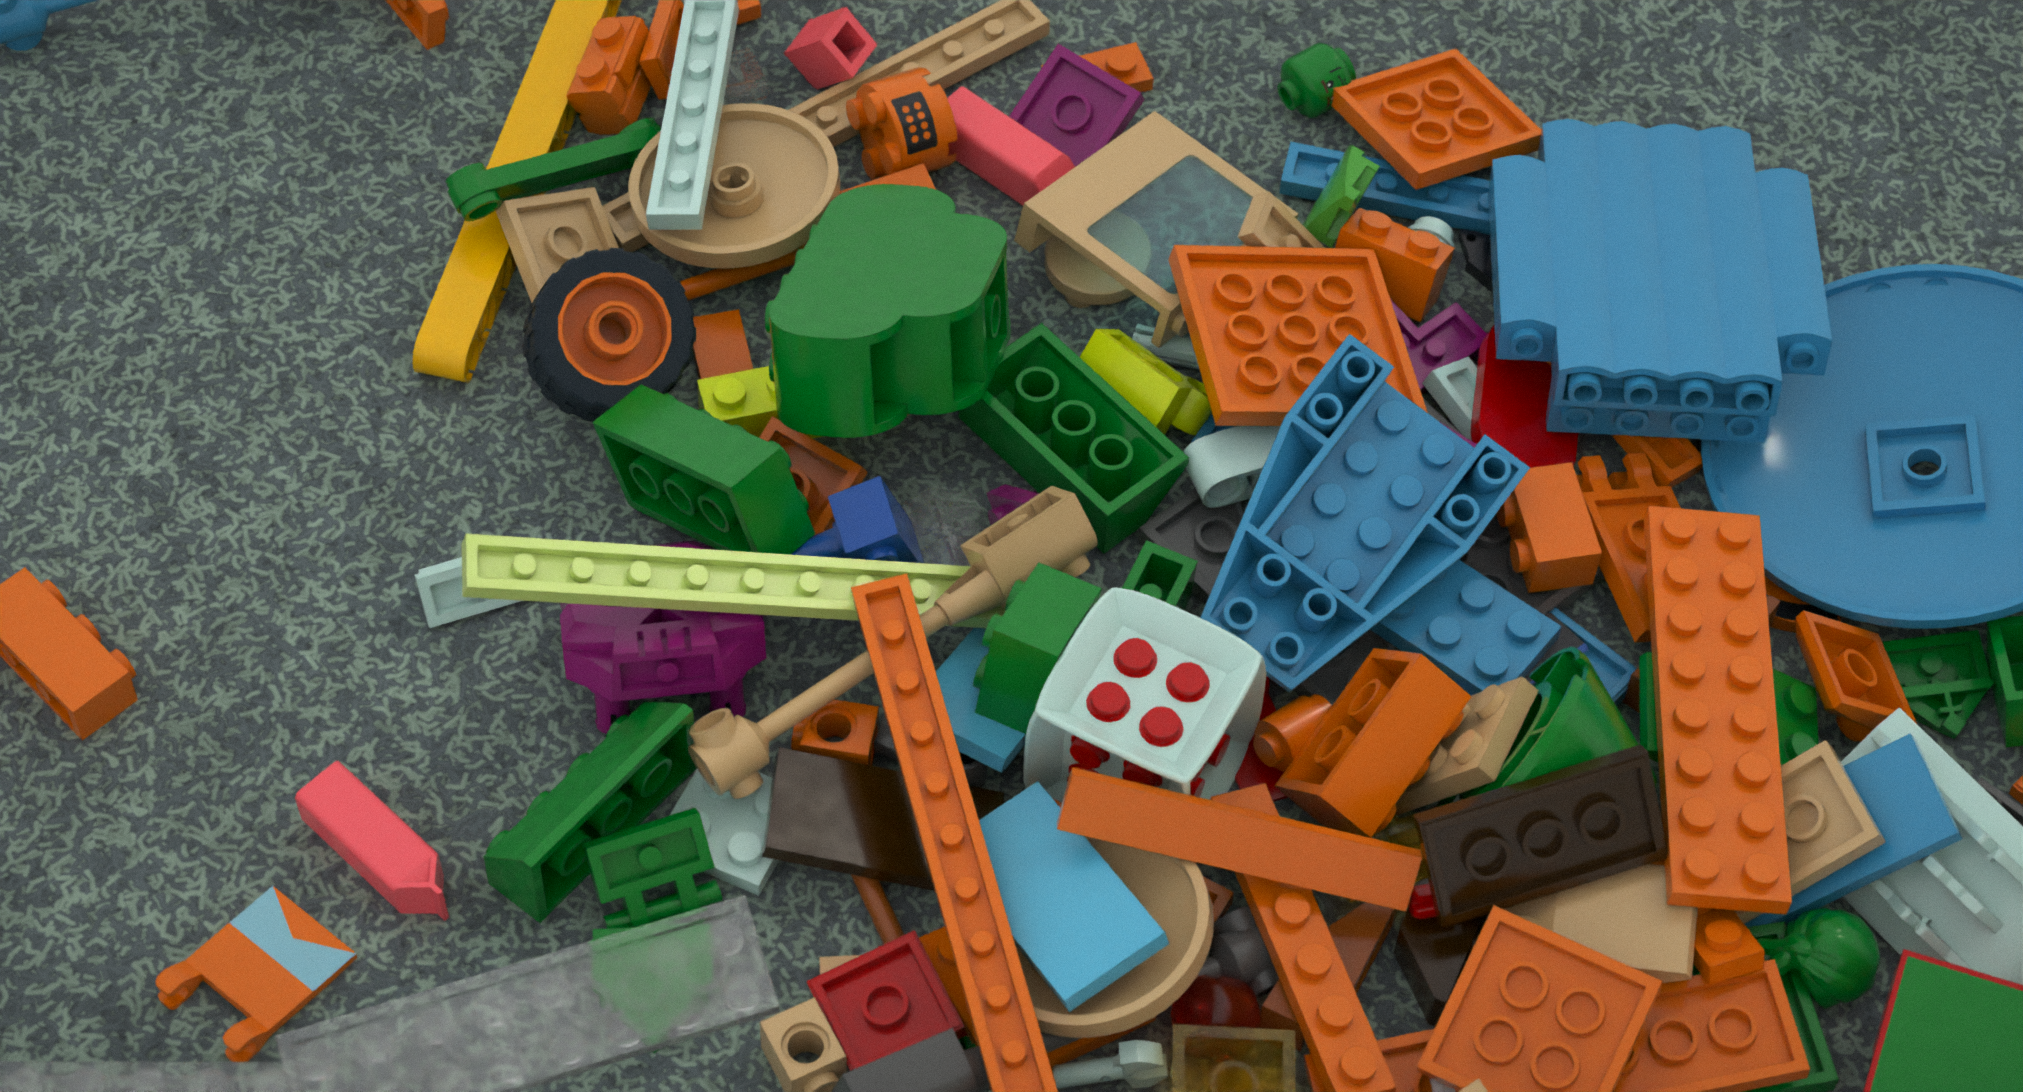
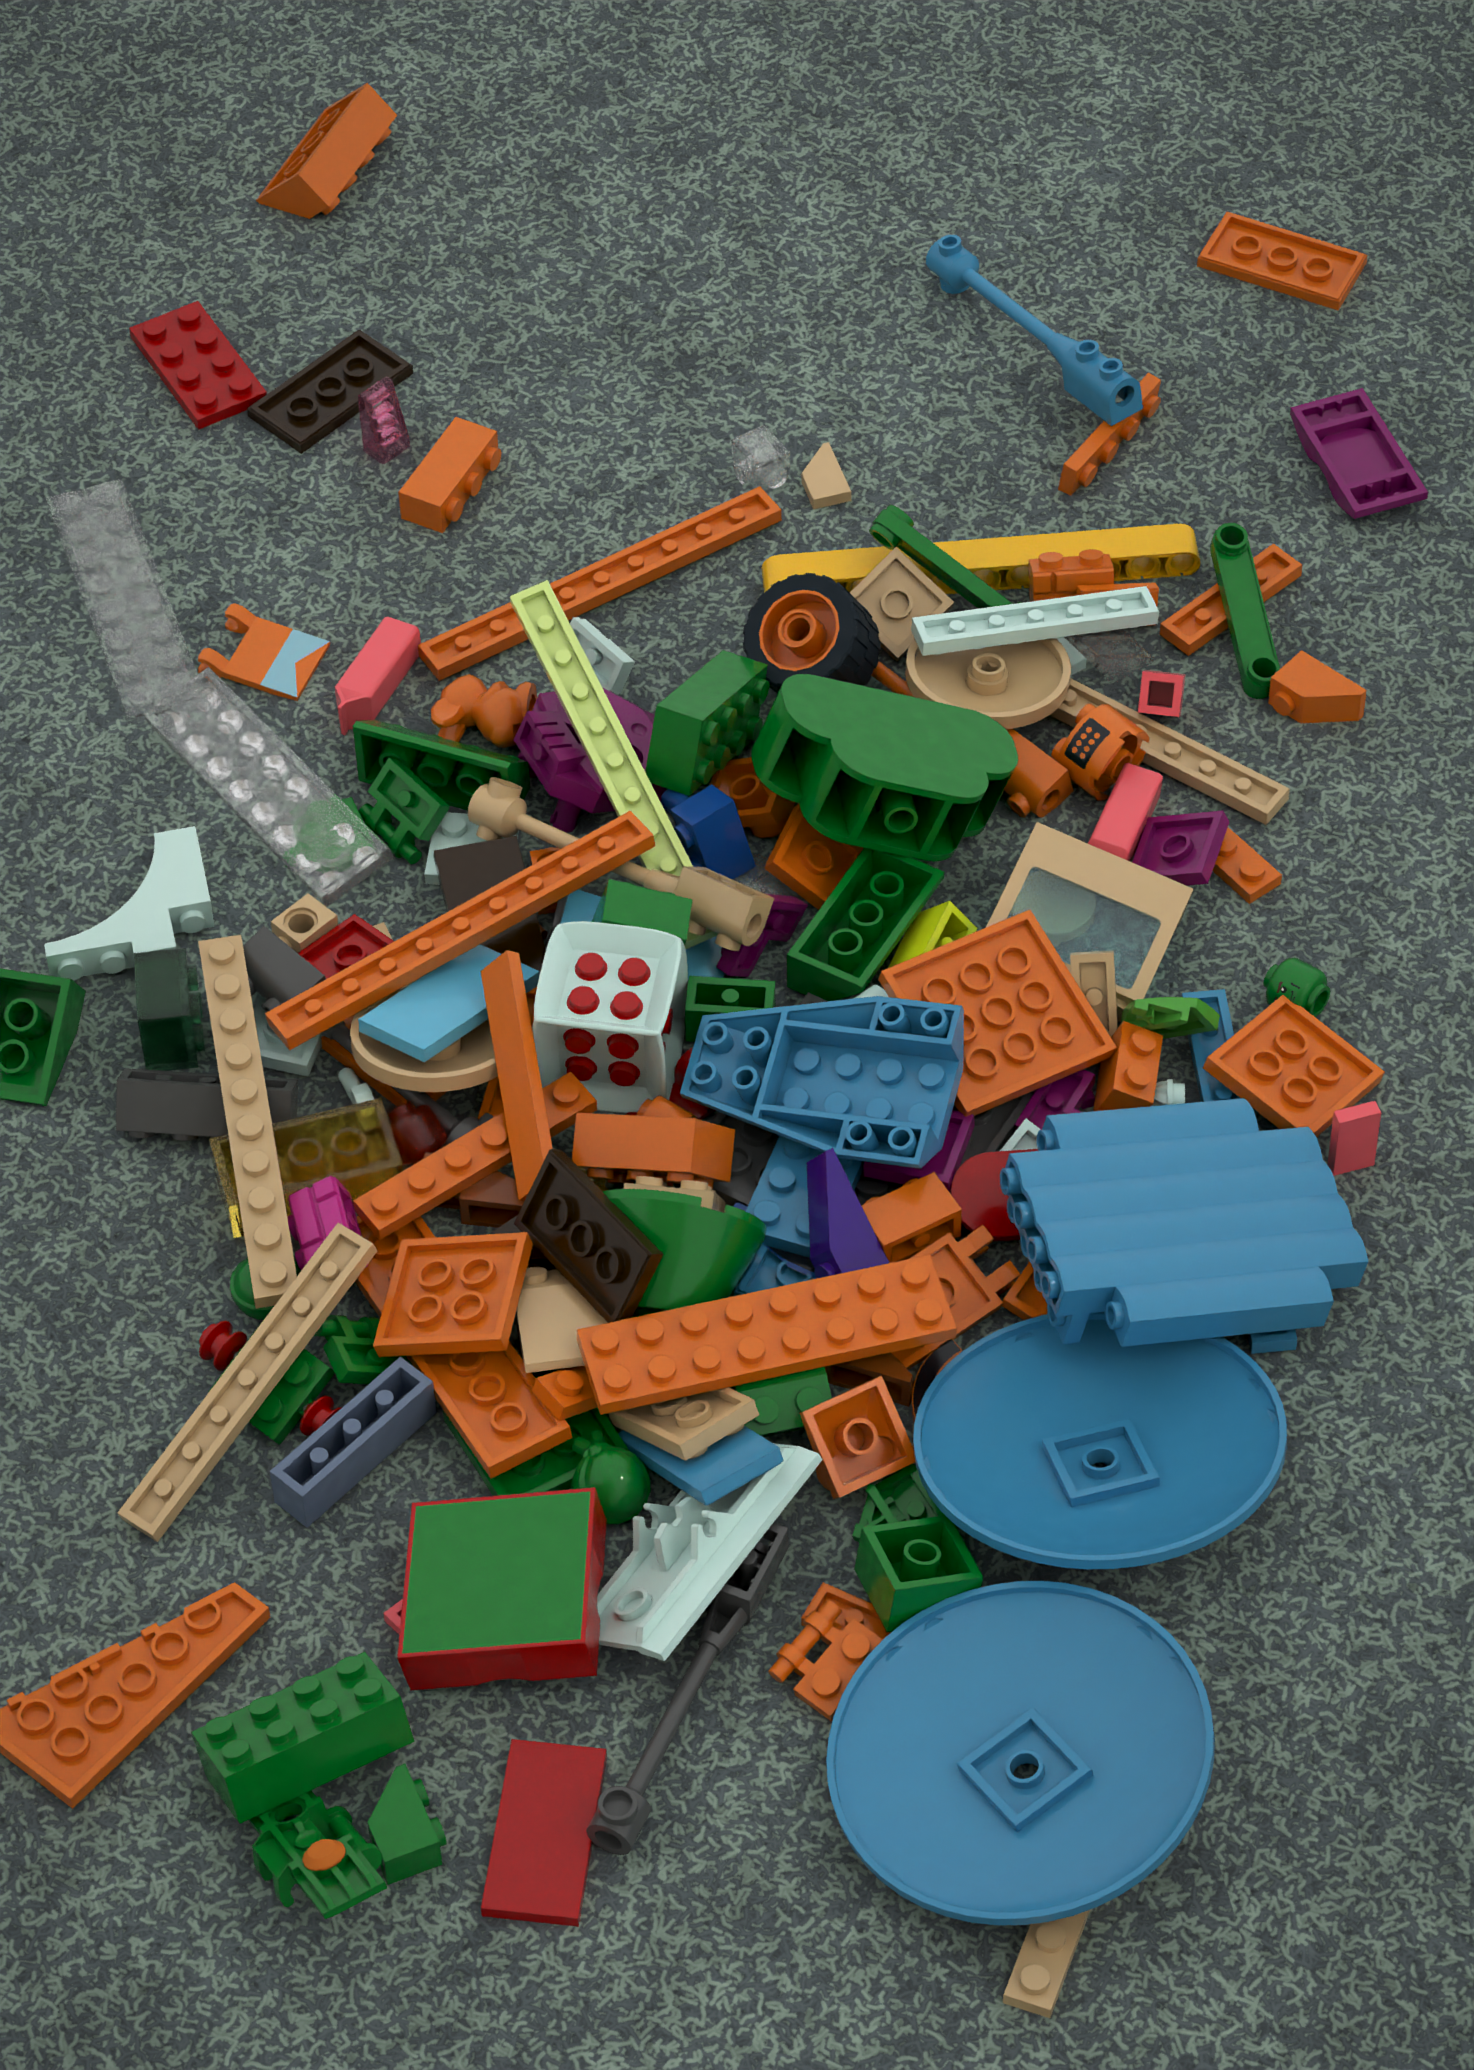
camera: 75 degrees right, 5 degrees down
(228, 309) = (760, 459): none -> clear brick
(286, 261) = (825, 480): none -> tan tile
(343, 553) = (606, 579): none -> orange plate
(528, 717) = (494, 711): none -> orange animal
(940, 456) = (809, 860): none -> orange plate
(1559, 590) = (837, 1223): none -> dark purple slope
(1563, 84) = (1354, 1138): none -> coral tile

